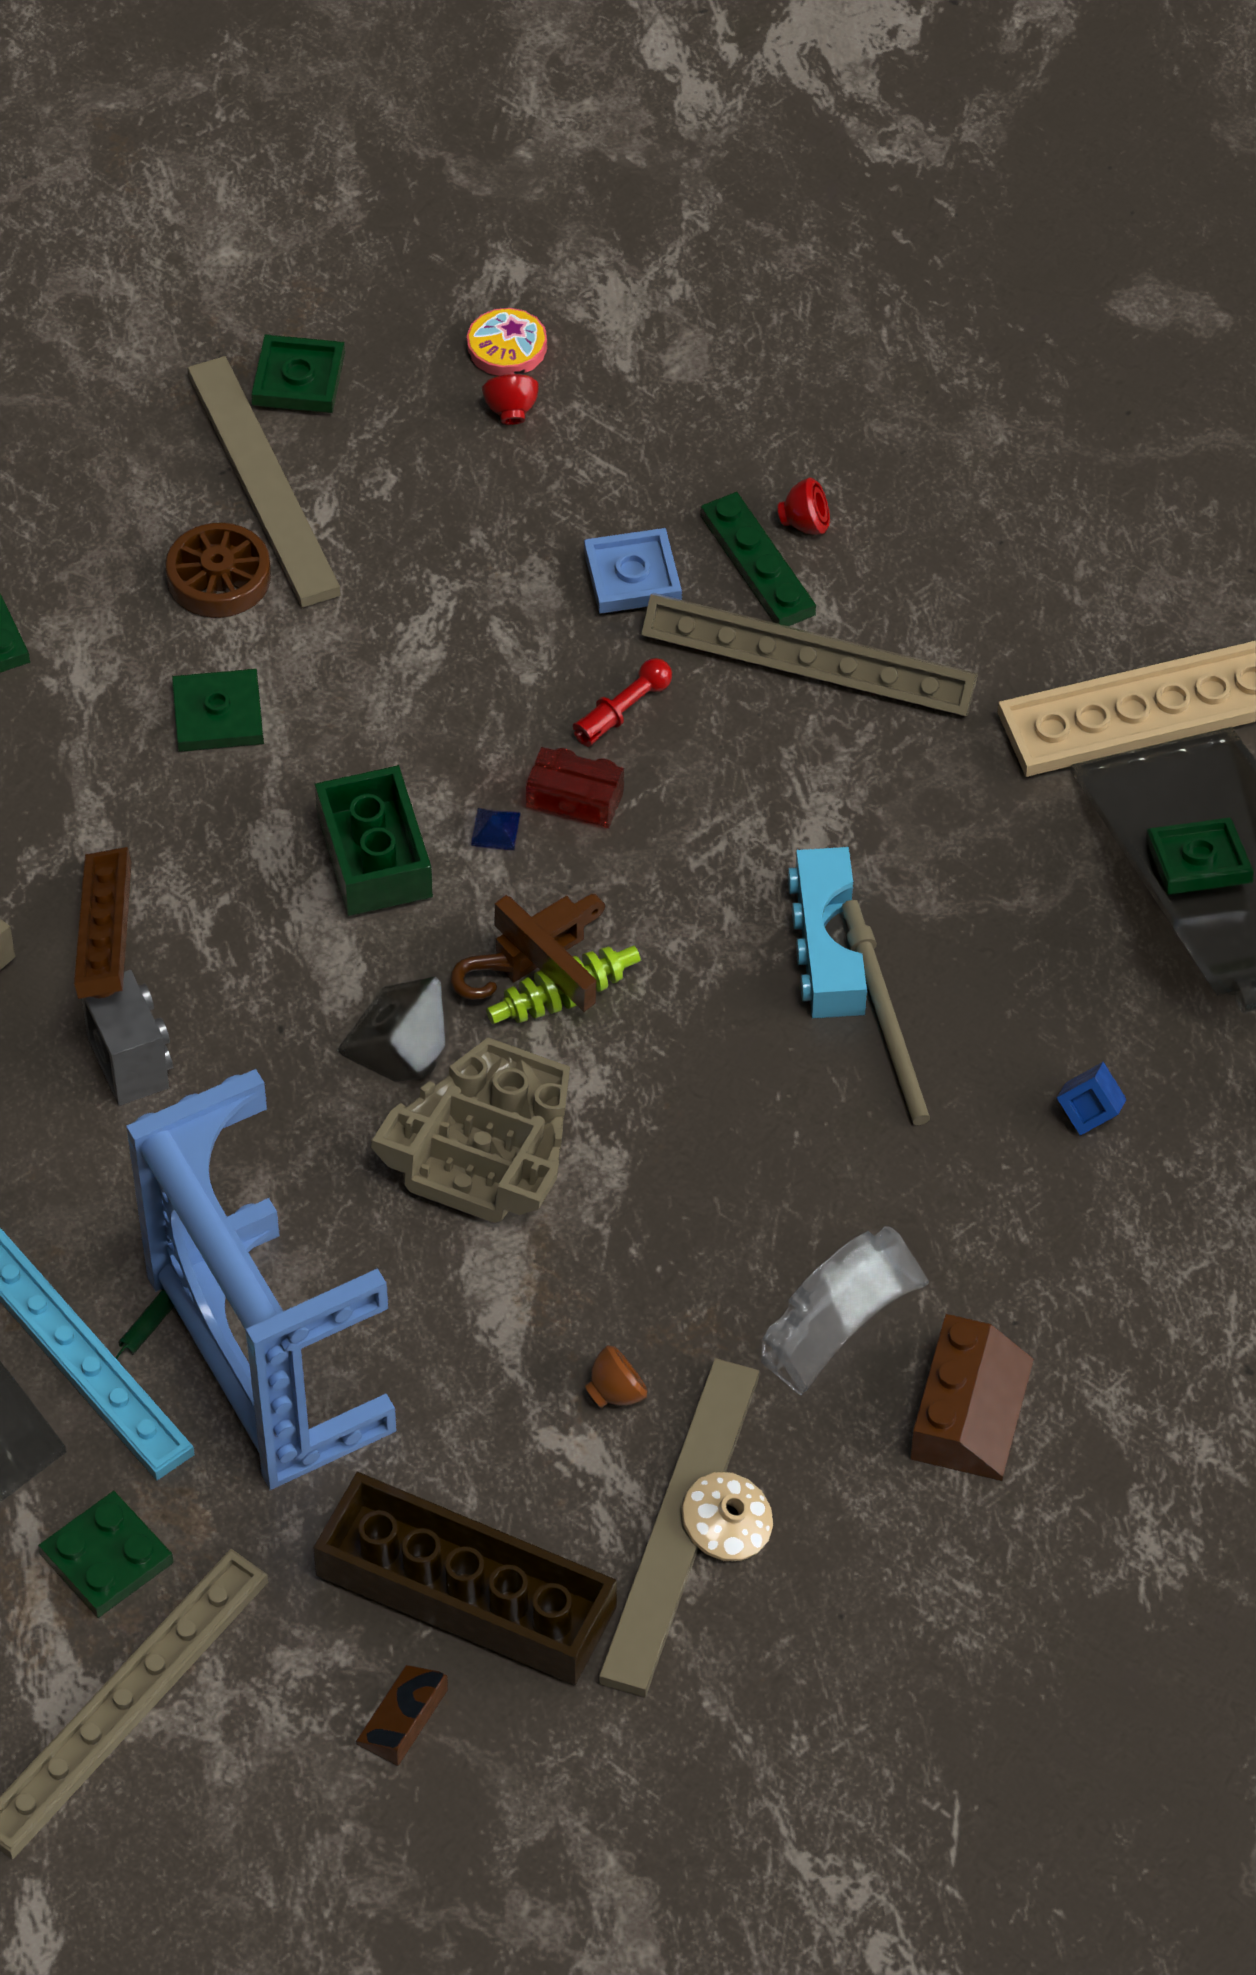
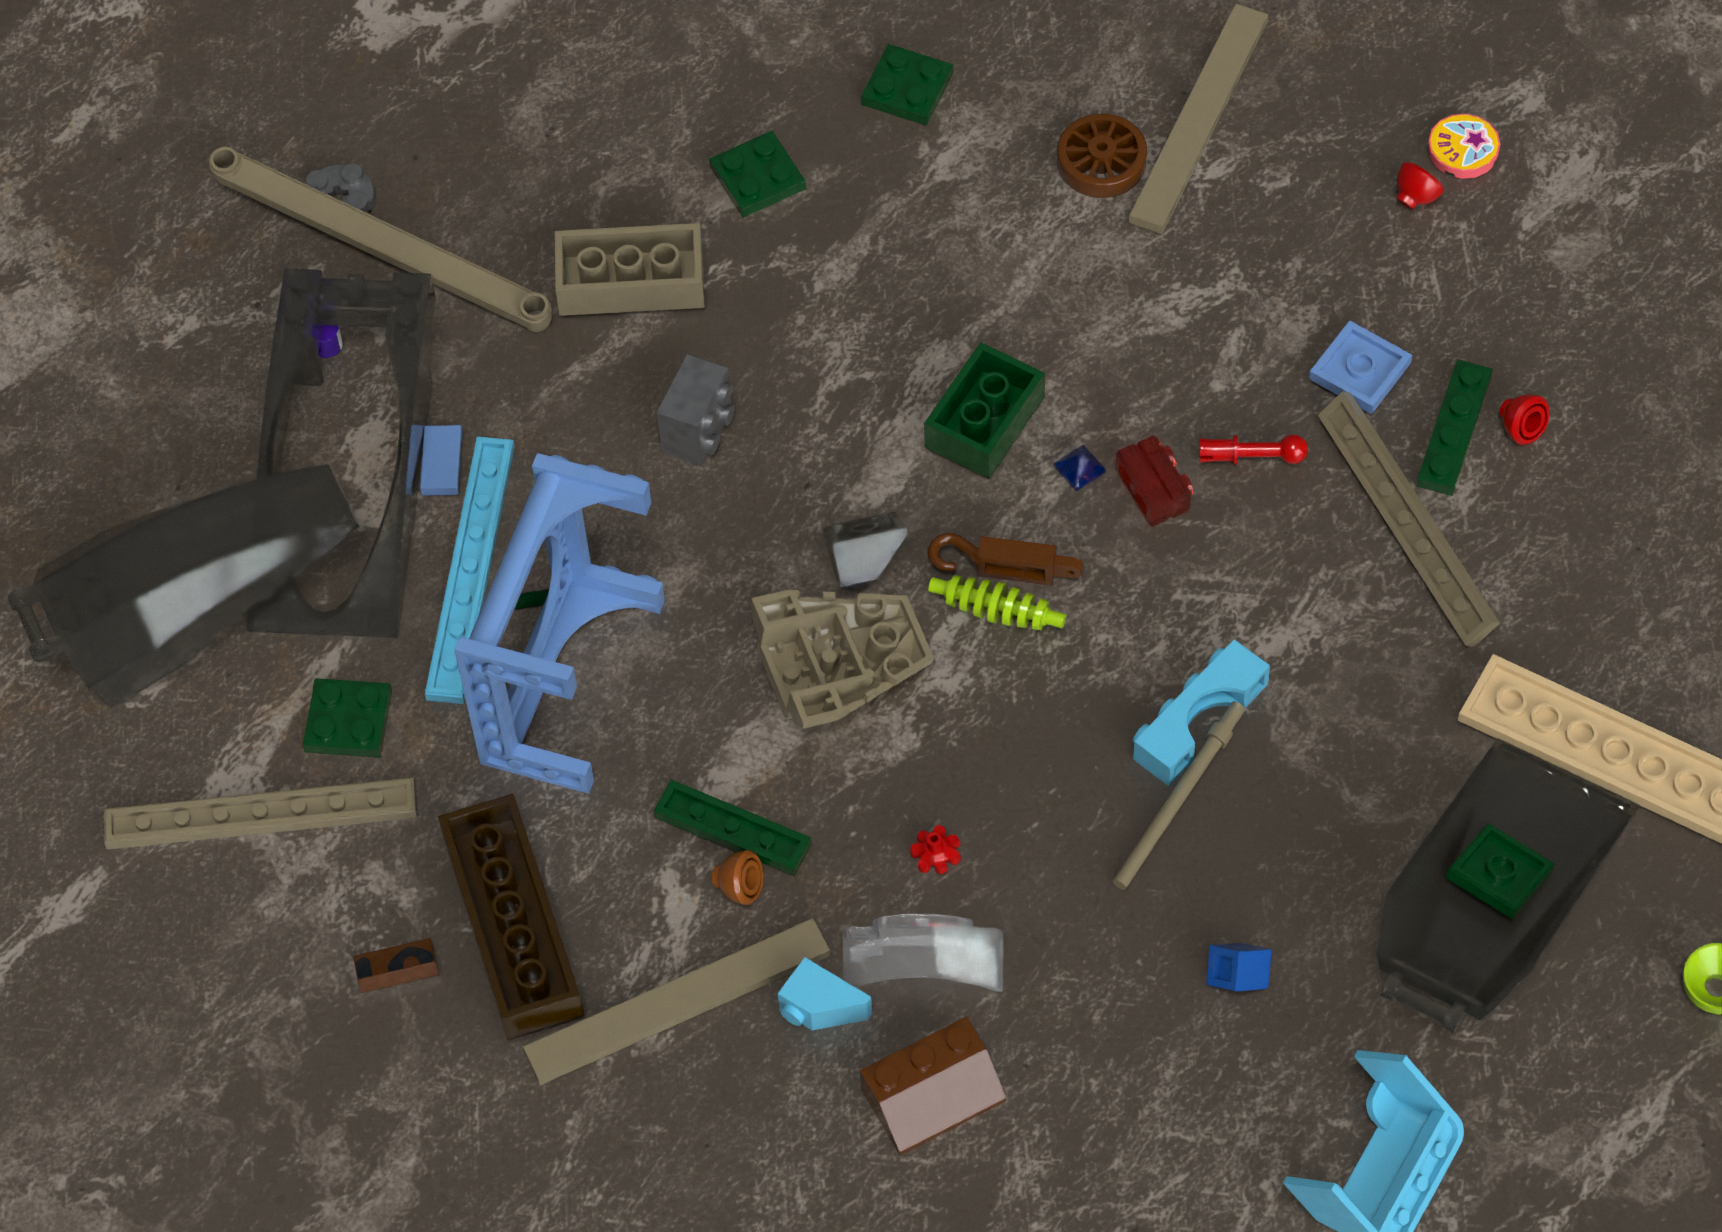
camera: 50 degrees right, 5 degrees up
(103, 924) = (753, 326): reddish brown plate -> none
(217, 710) = (999, 248): dark green plate -> none
(298, 373) = (1300, 62): dark green plate -> none
(545, 952) = (991, 570): reddish brown tile -> none
(558, 1346) = (732, 827): none -> dark green plate
(718, 1531) = (703, 1041): tan dish -> none
(744, 1221) = (935, 850): none -> red plant
(800, 1411) = (821, 999): none -> medium azure slope

